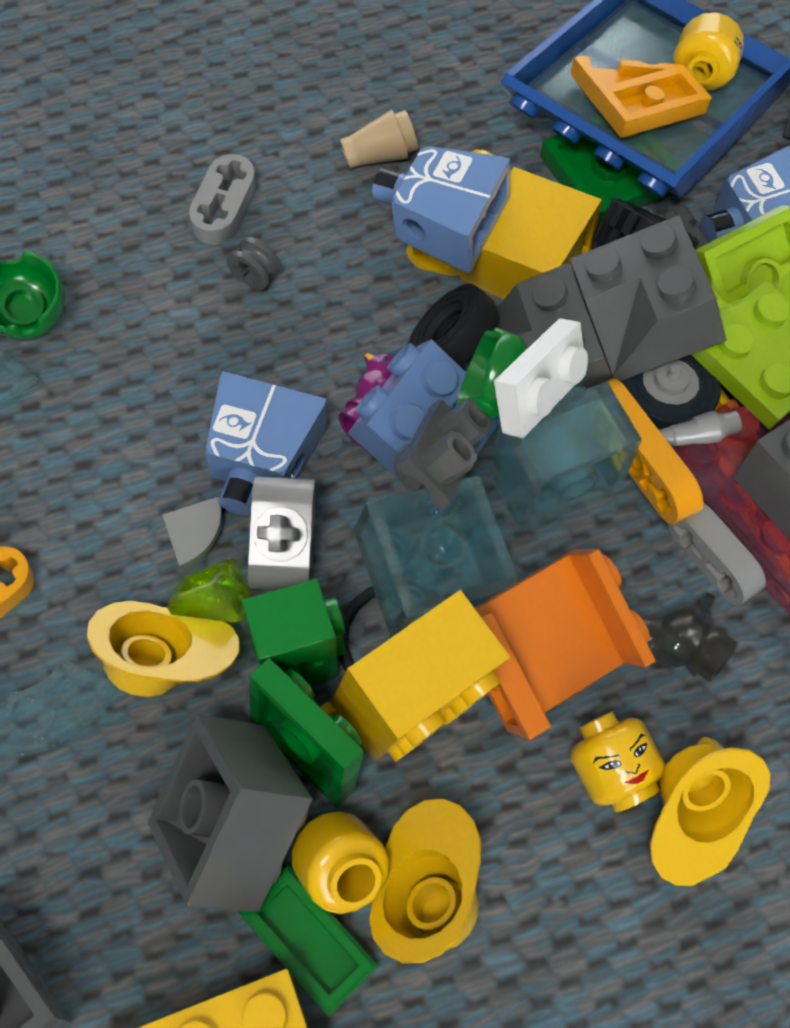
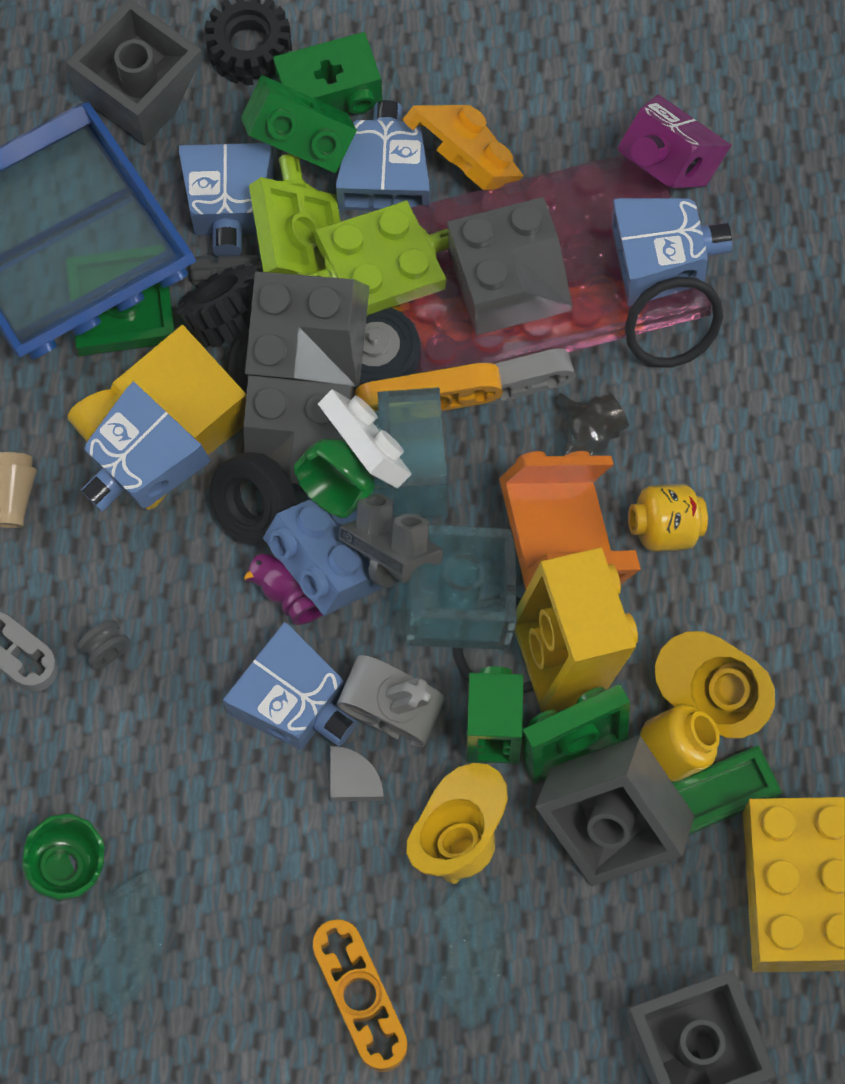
camera: 65 degrees left, 5 degrees up
(211, 594) = (420, 778): clear neon green slope -> none
(640, 93) = (75, 247): light orange wing -> none
(703, 429) = (430, 338): light grey piece -> none
(706, 810) = (723, 468): yellow piece -> none
(711, 47) = (51, 168): yellow head -> none

